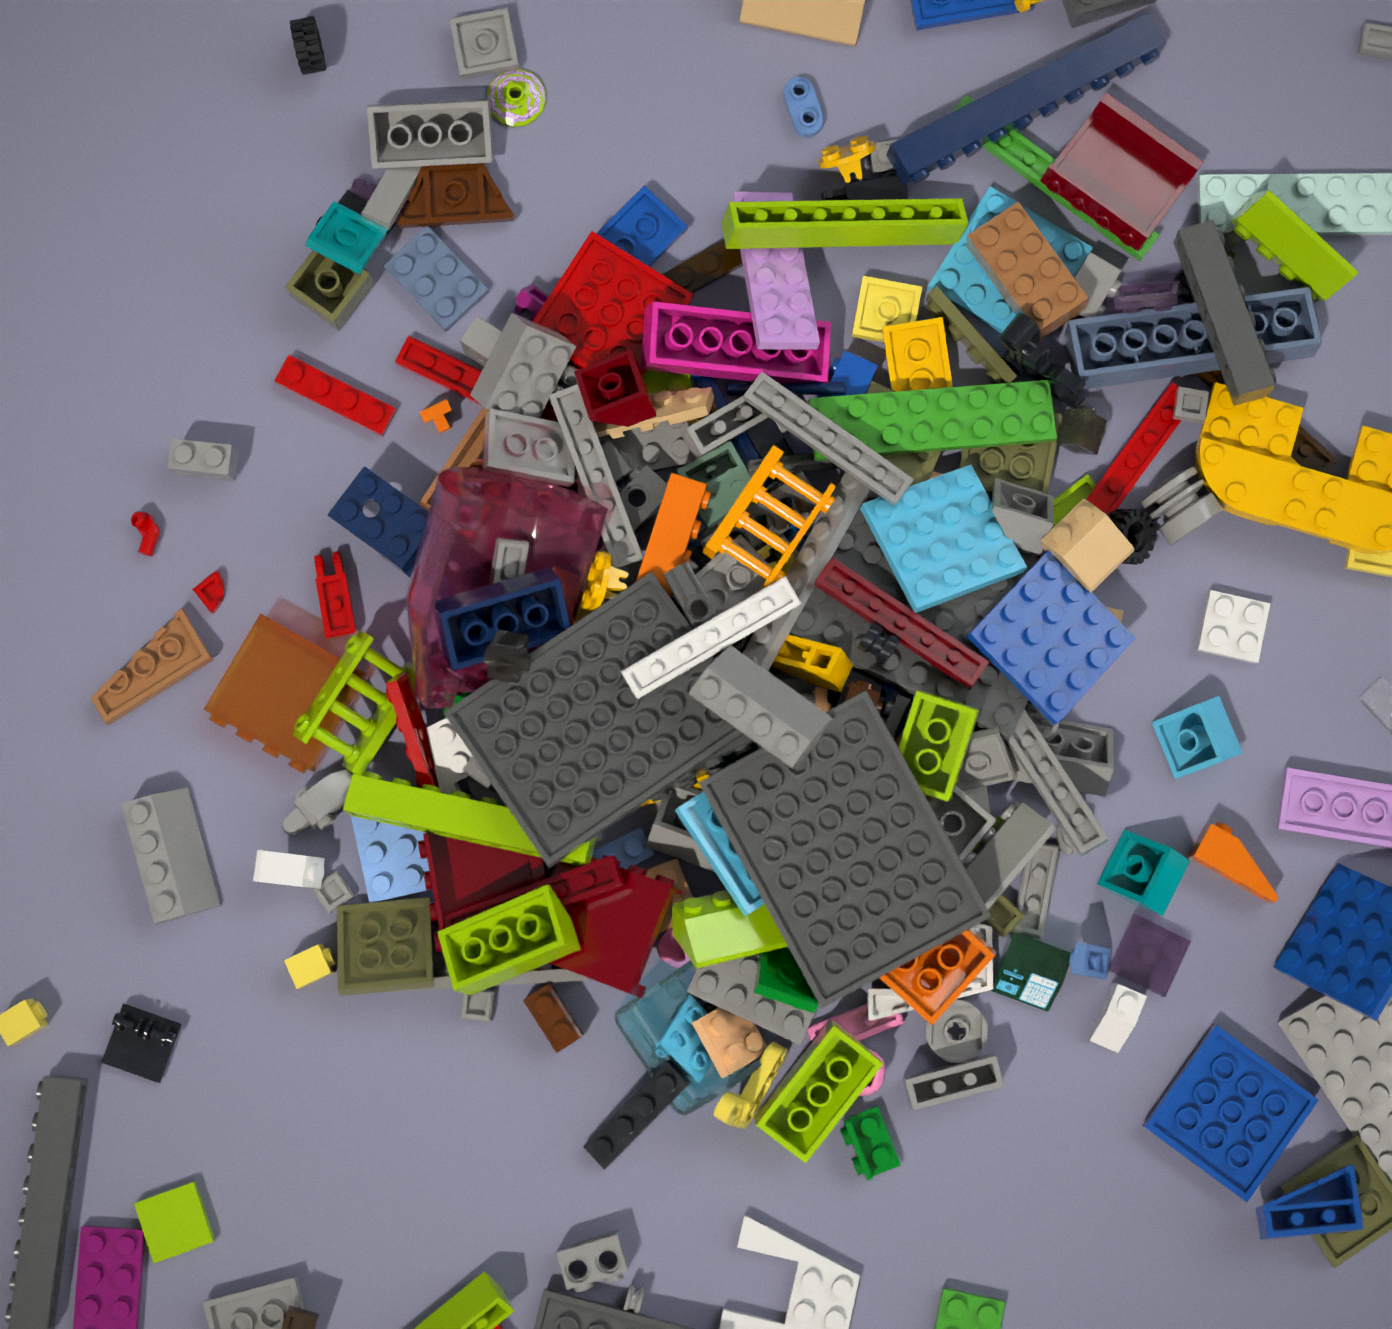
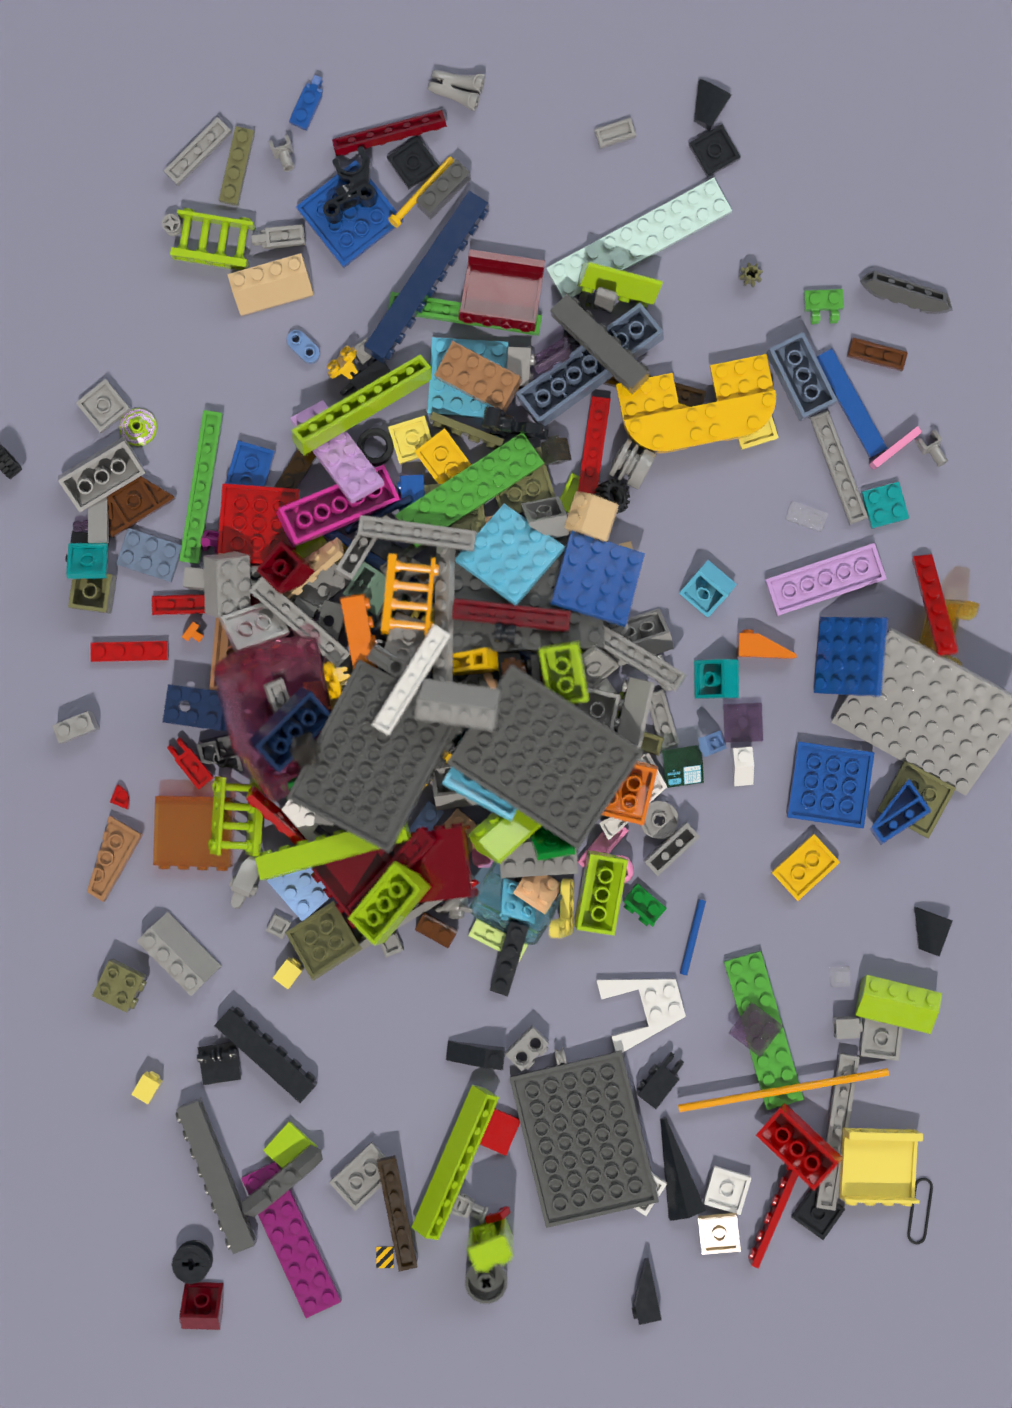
camera: 25 degrees left, 5 degrees up
(63, 855) = (120, 985): none -> olive brick
(136, 1263) = (282, 1181): none -> dark grey brick
(149, 531) = (67, 782): red arm -> none
(215, 1065) = (266, 1054): none -> black brick
(289, 869) = (248, 927): white slope -> none
(384, 602) = (219, 752): none -> black slope
(514, 1230) = (476, 1055): none -> black slope
(558, 222) = (201, 486): none -> bright green plate
(600, 998) = (456, 907): none -> light grey animal
(625, 1068) = (490, 935): none -> yellowish green tile
(843, 274) = (389, 445): none -> black tyre
(916, 1228) = (692, 937): none -> blue bar
(1133, 1213) = (805, 867): none -> yellow plate
(1190, 405) = (608, 404): light grey plate -> none
(1233, 627) = (696, 515): white plate -> none
(1261, 257) = (605, 300): none -> light grey tile

